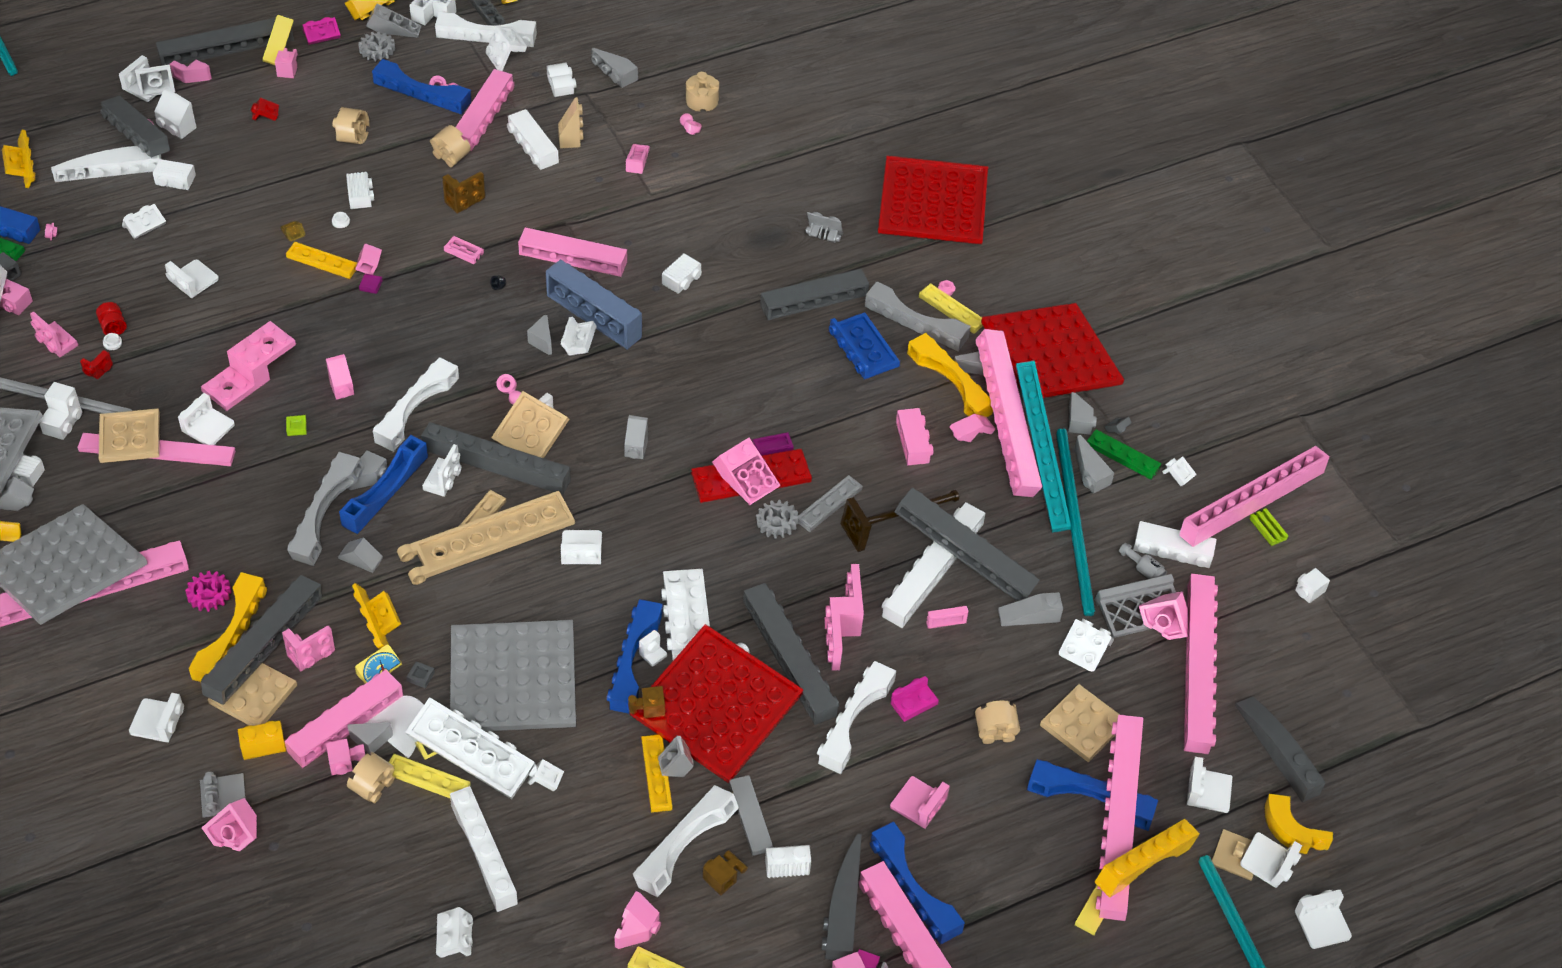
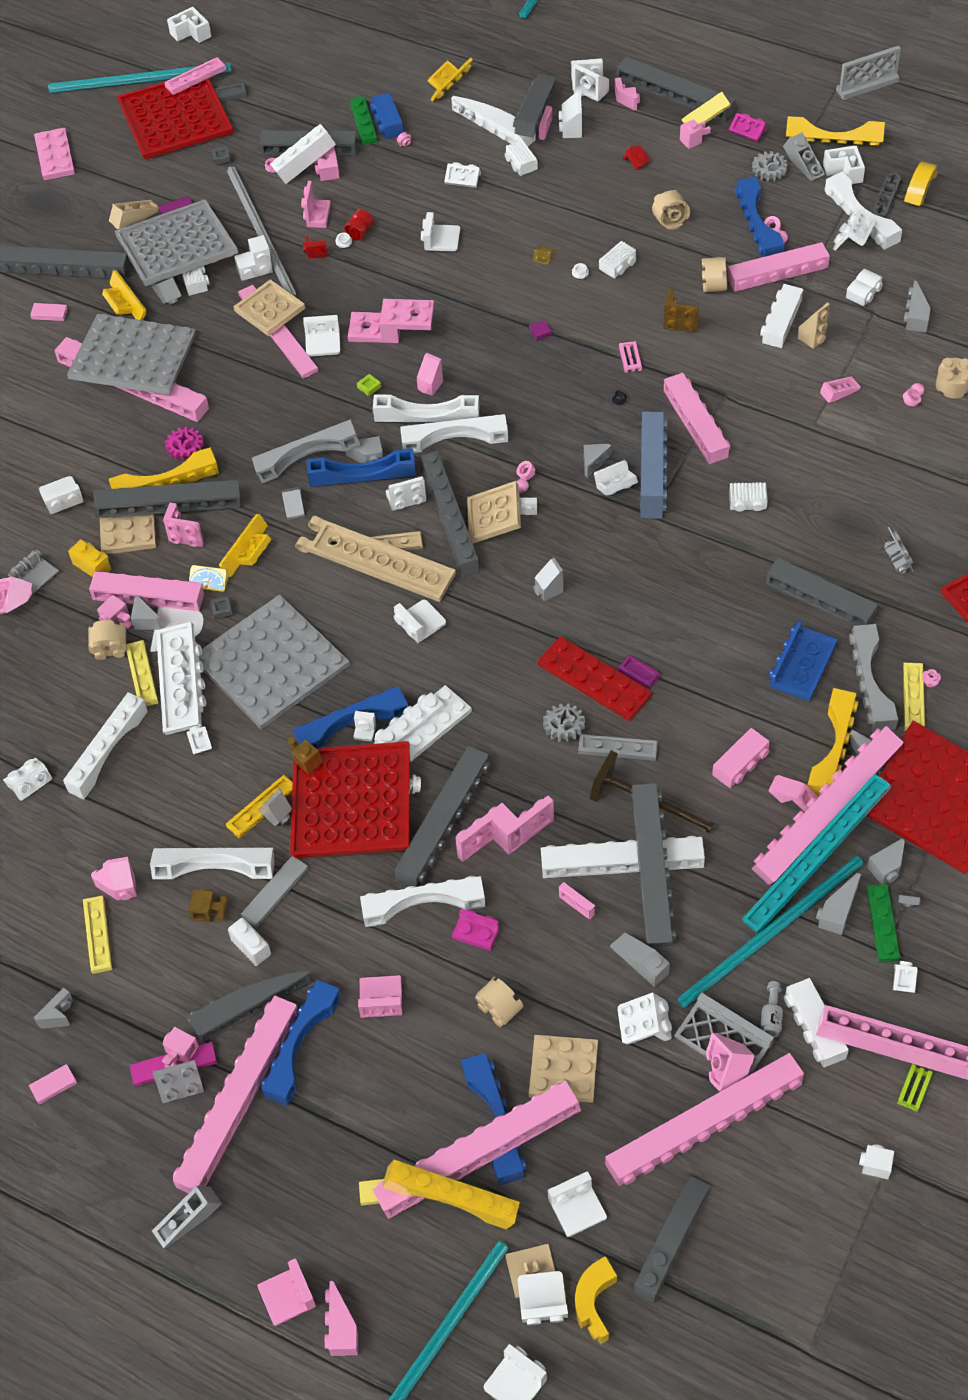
camera: 60 degrees right, 5 degrees up
(321, 260) = (533, 289): yellow tile -> none
(346, 424) = (392, 409): none -> white arch
(368, 259) = (557, 311): bright pink brick -> none
(746, 471) = (584, 670): bright pink slope -> none

